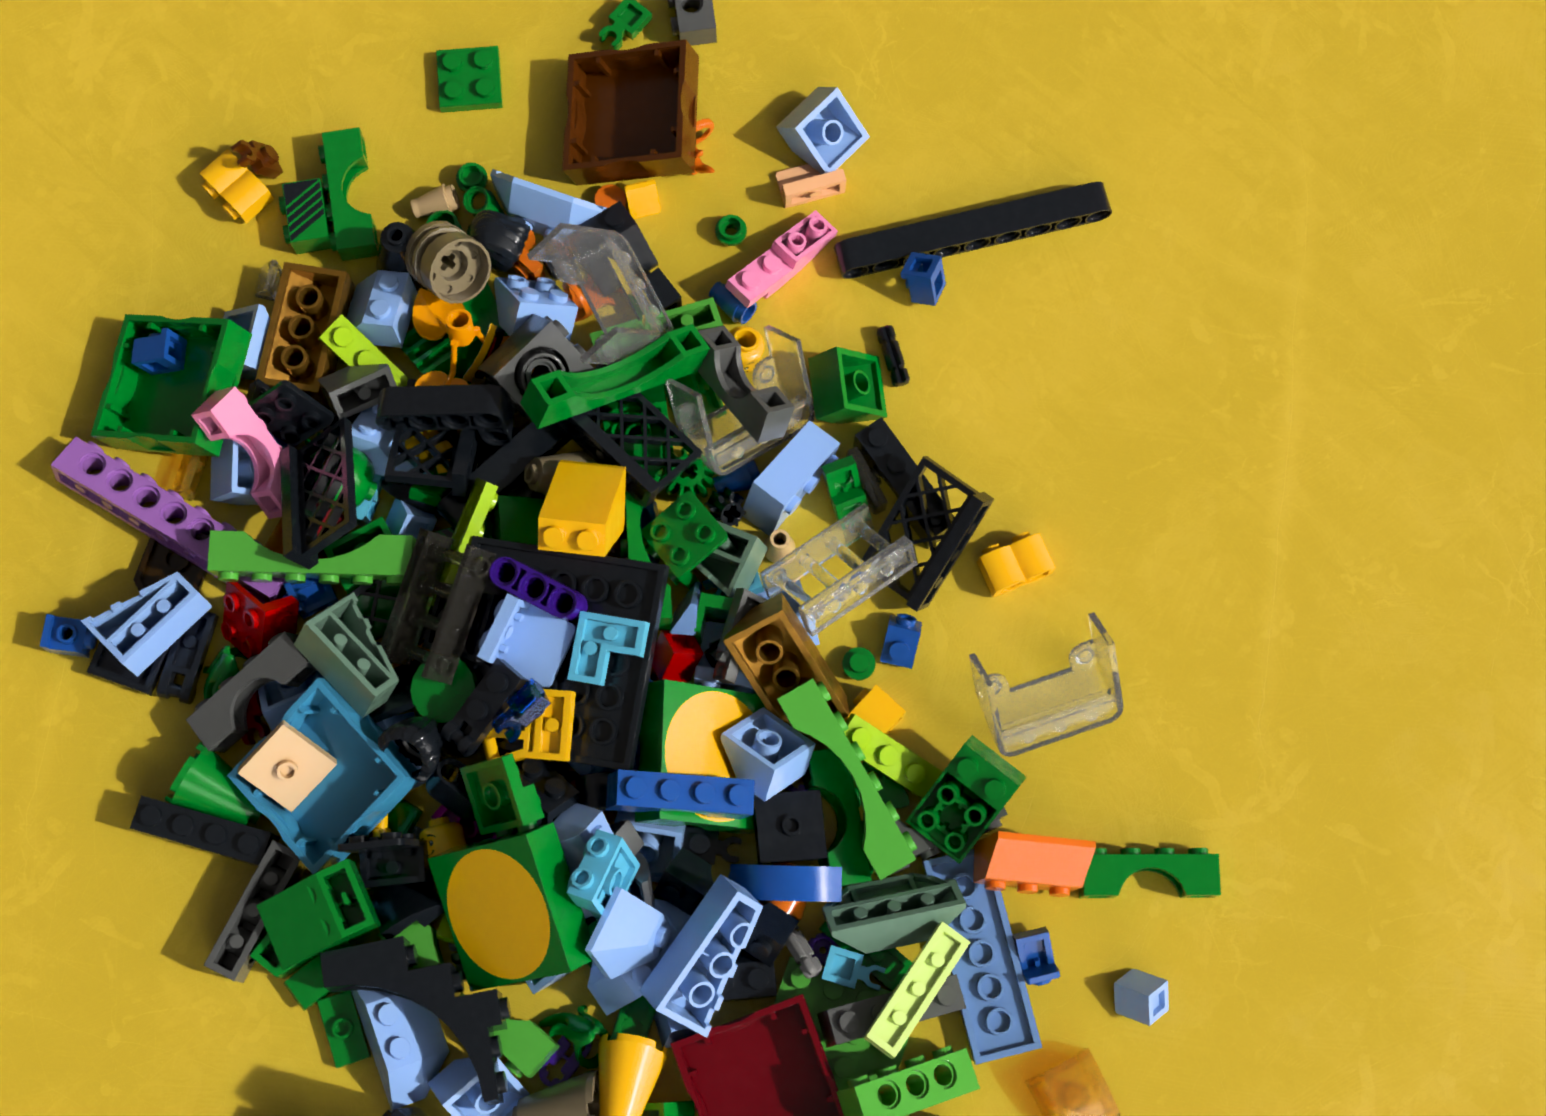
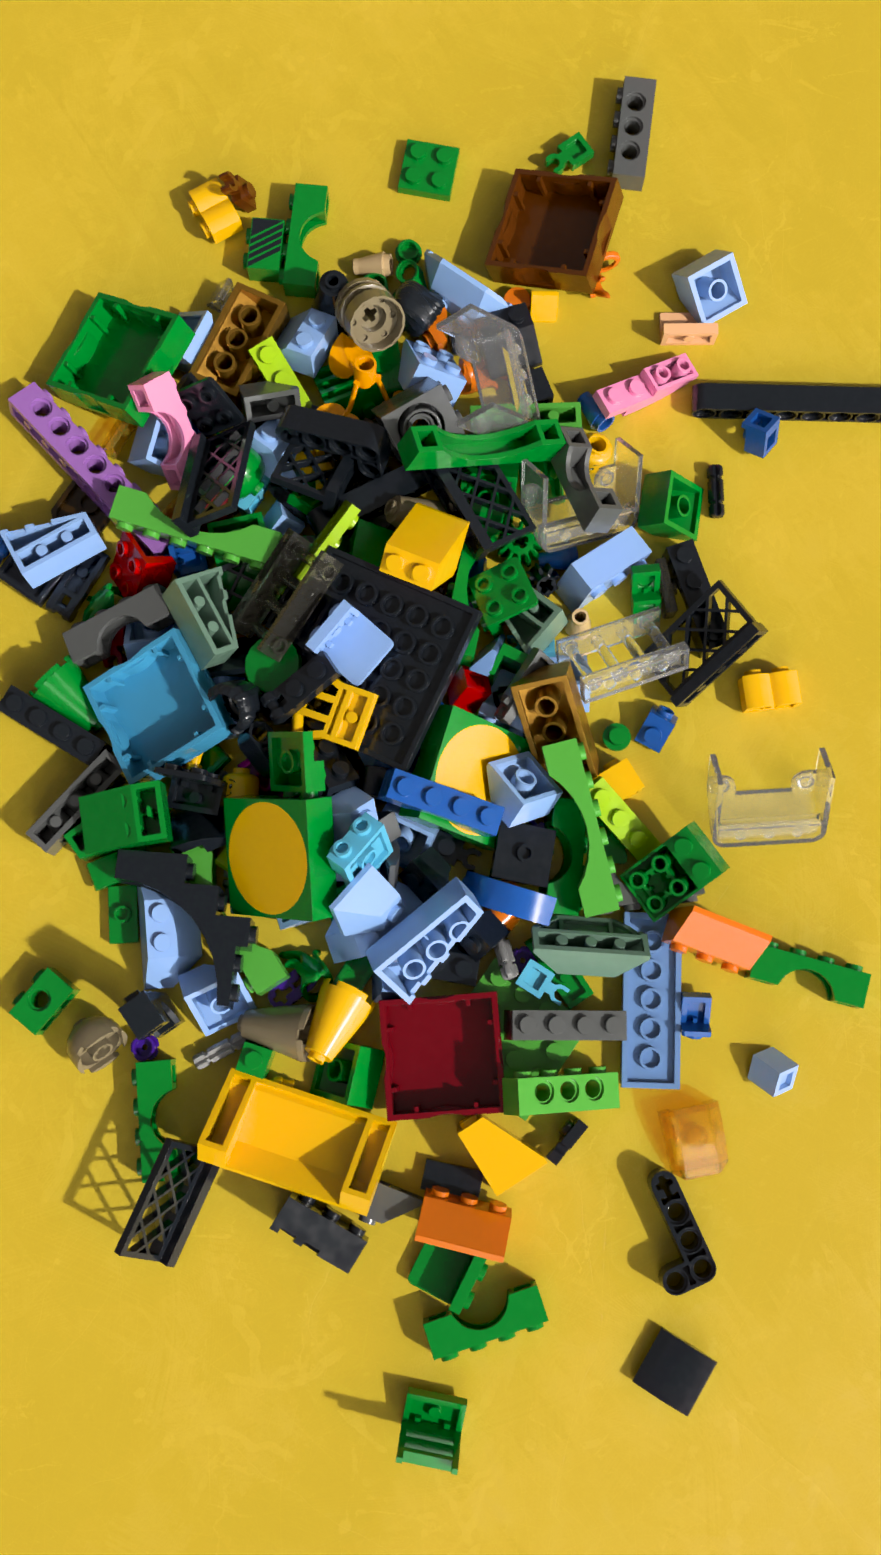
camera: 20 degrees right, 5 degrees up
(160, 352) = (118, 330): blue brick -> none
(287, 766) = (131, 692): tan plate -> none
(491, 343) = (389, 390): sticker -> none
(524, 583) = (359, 596): dark purple beam -> none
(524, 707) = (332, 696): clear blue plate -> none
(598, 637) = (411, 655): medium azure plate -> none
(730, 221) = (610, 344): green plate -> none
(916, 990) = (590, 1015): yellowish green plate -> none

